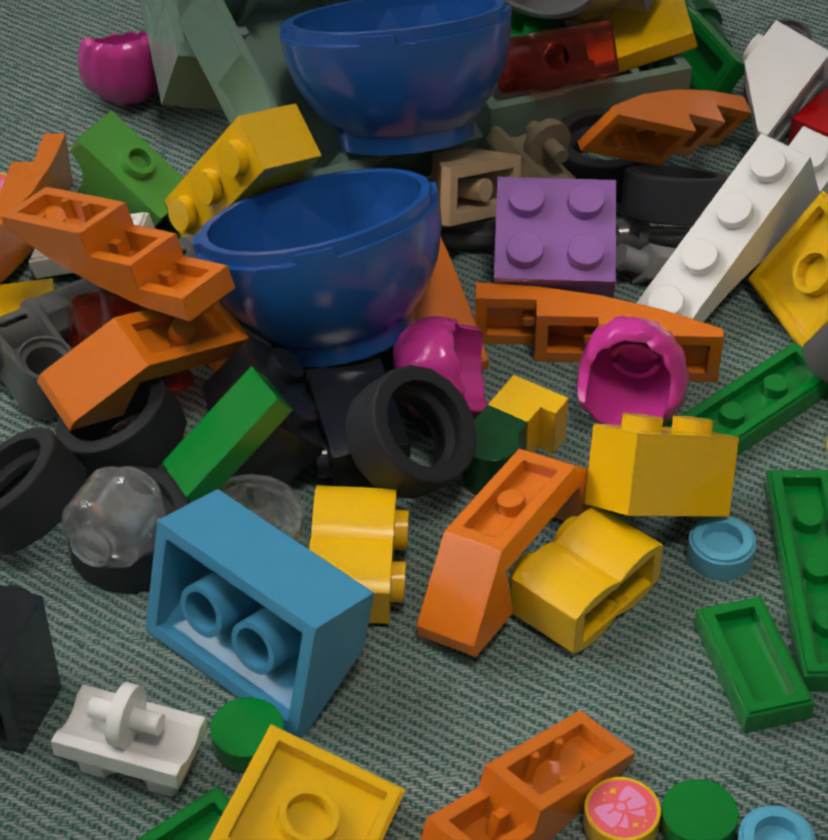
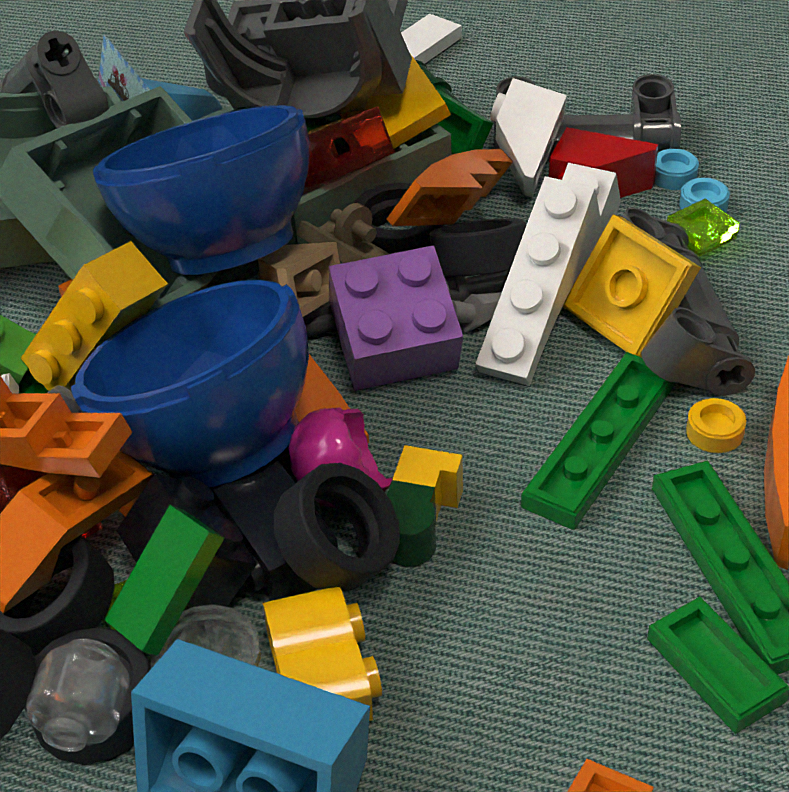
camera: 15 degrees left, 0 degrees up
(469, 581) = (447, 614): orange slope -> none
(564, 321) = (476, 384): orange slope -> none
(584, 578) = (538, 624): yellow brick -> none
(632, 369) = (509, 419): dark pink hair -> none
(661, 469) = (574, 501): yellow brick -> none
(721, 548) = (643, 558): medium azure tile -> none

